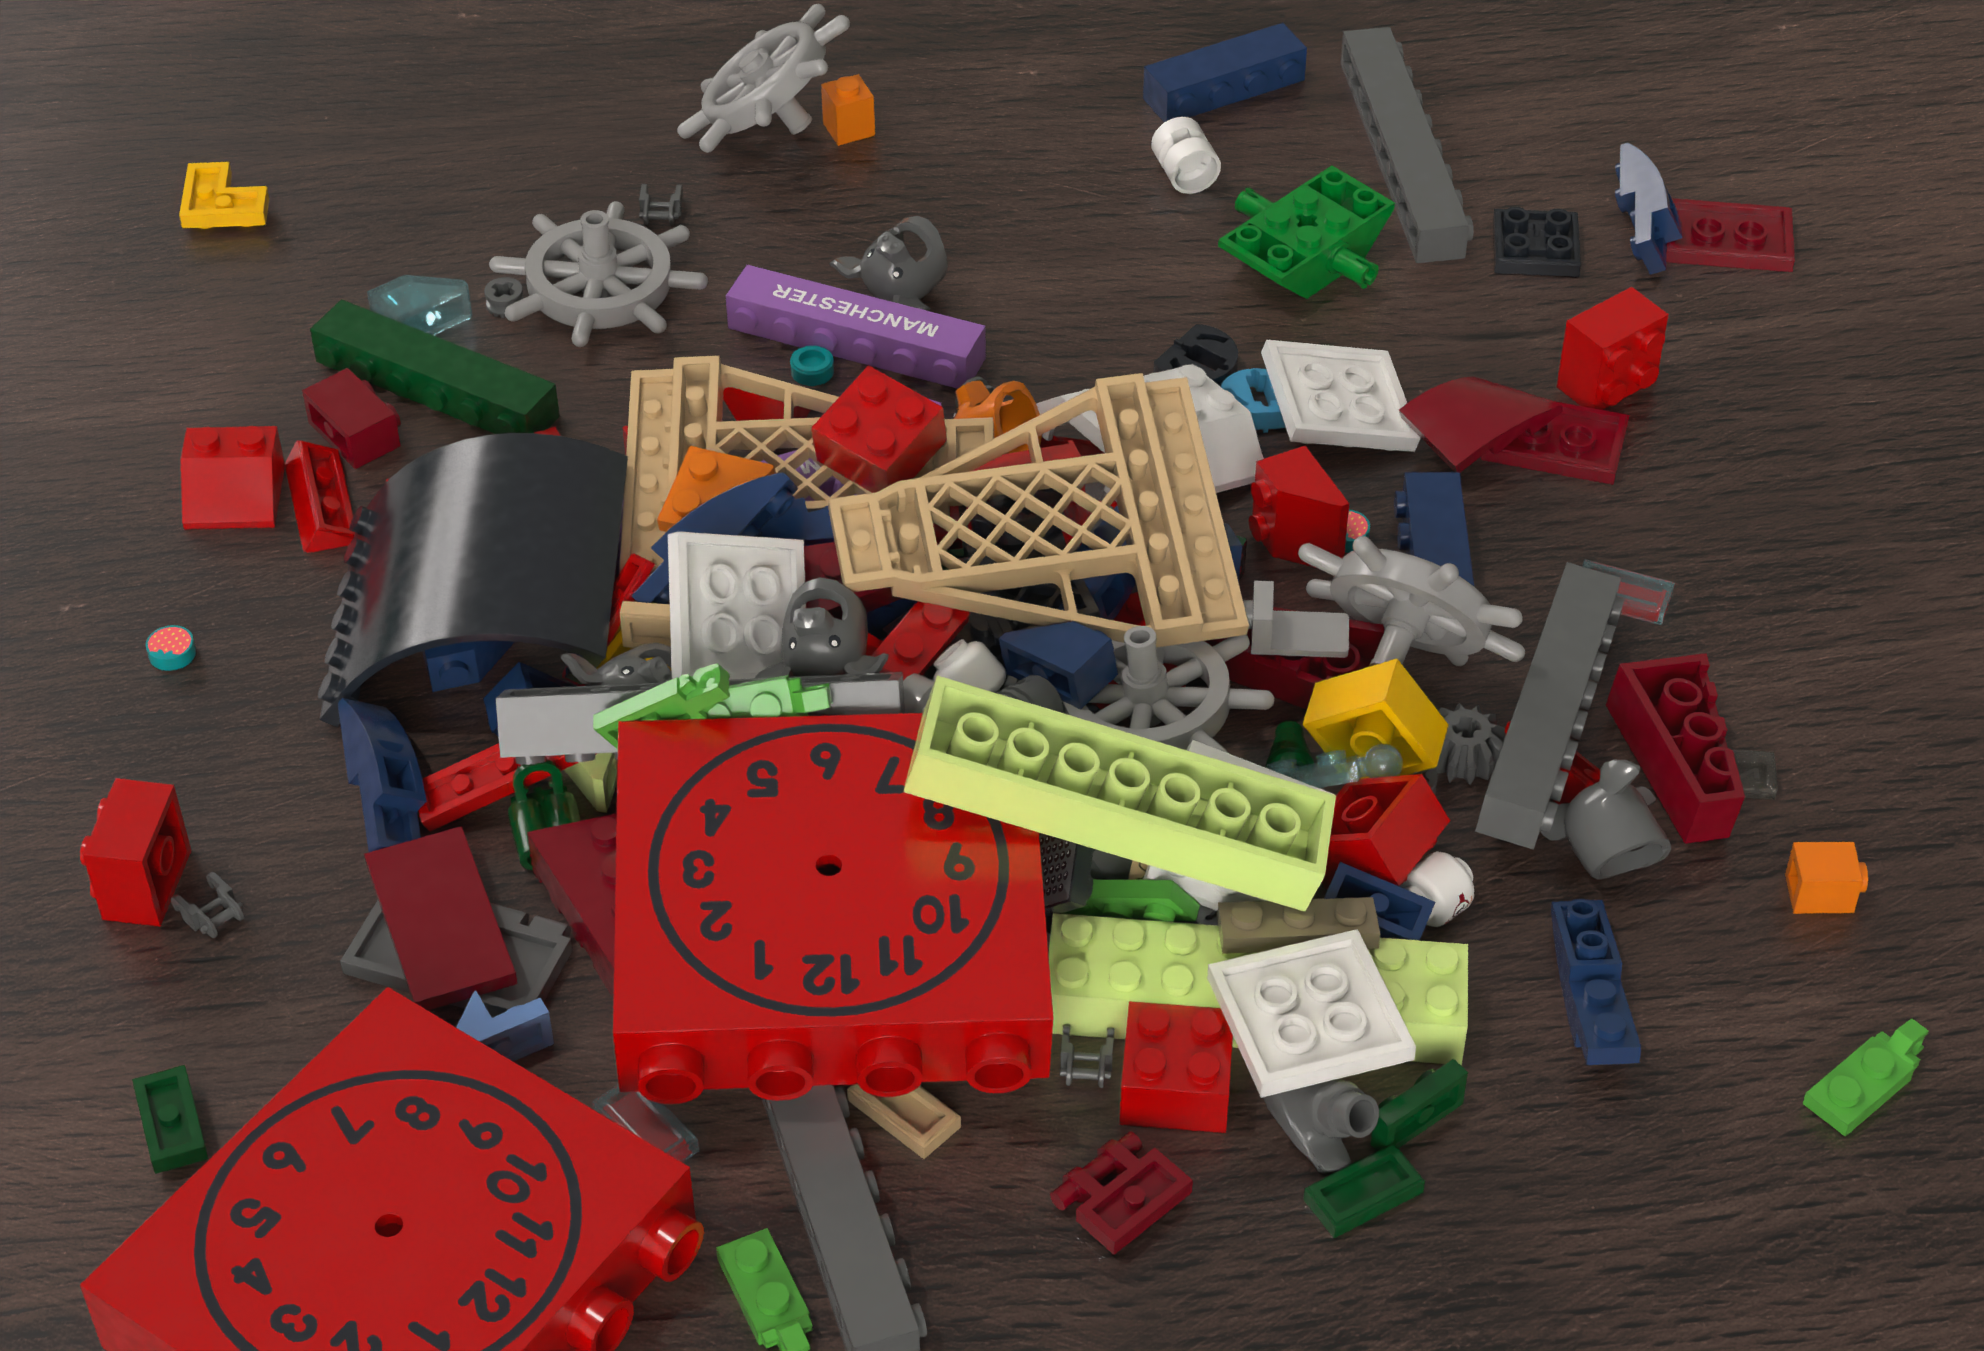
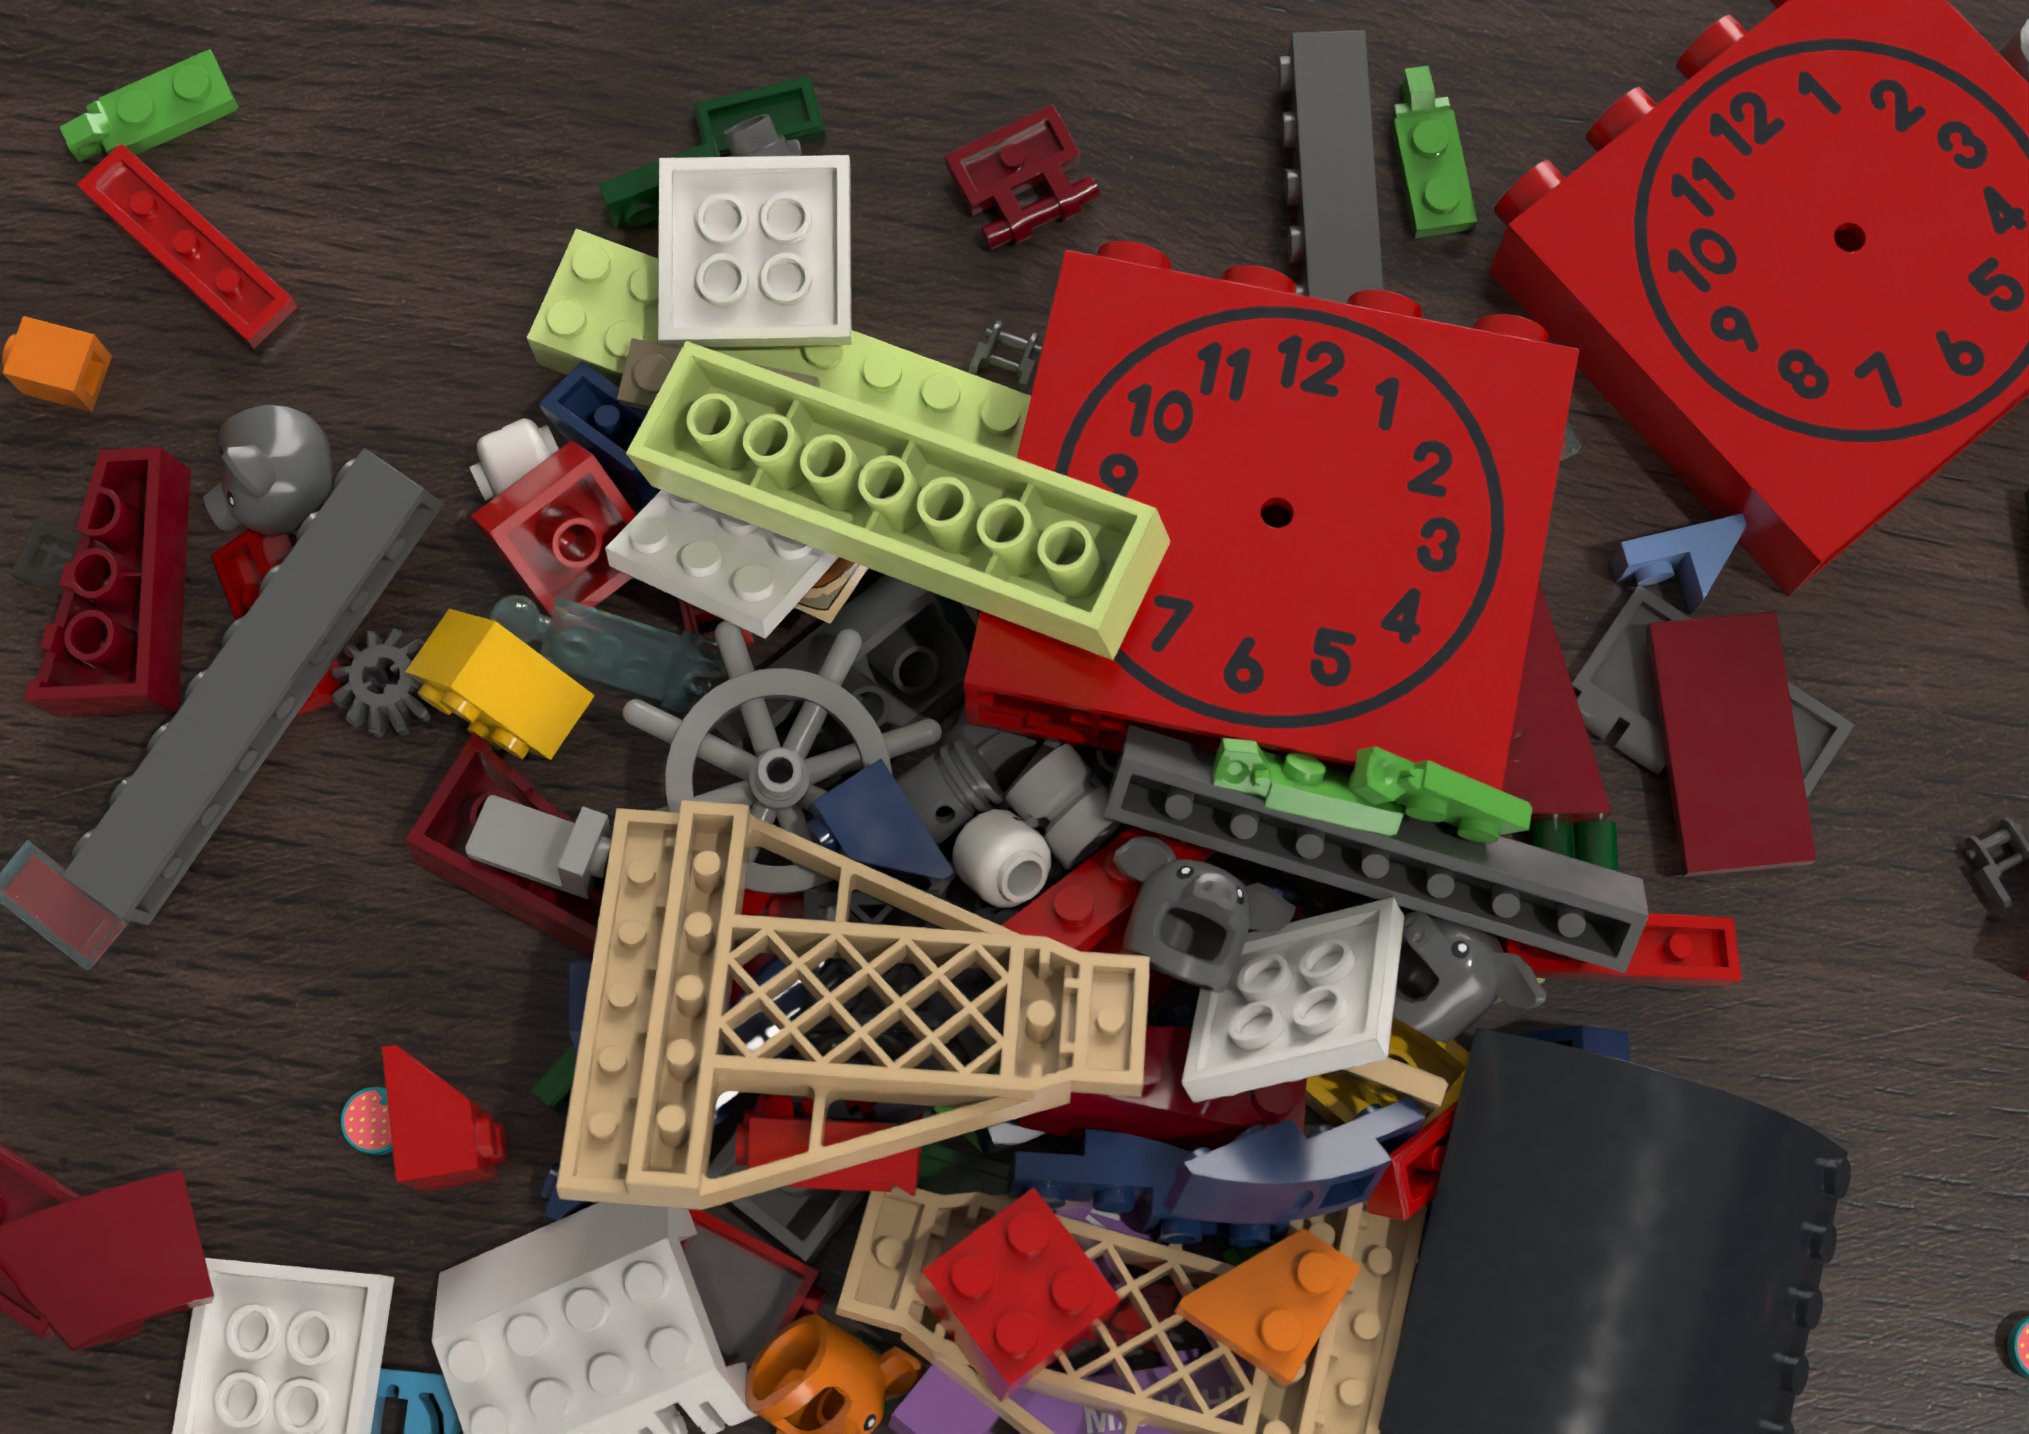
camera: 165 degrees left, 30 degrees up
(385, 769) = (1775, 997): dark blue slope -> none
(1176, 1067) = (918, 289): red brick -> none
(1290, 744) = (607, 733): dark green cone -> none
(1414, 601) = (382, 817): light grey piece -> none
(1434, 520) = (276, 1026): dark blue brick -> none
(1592, 983) = (400, 288): dark blue slope -> none
(1778, 981) = (187, 246): none -> red plate

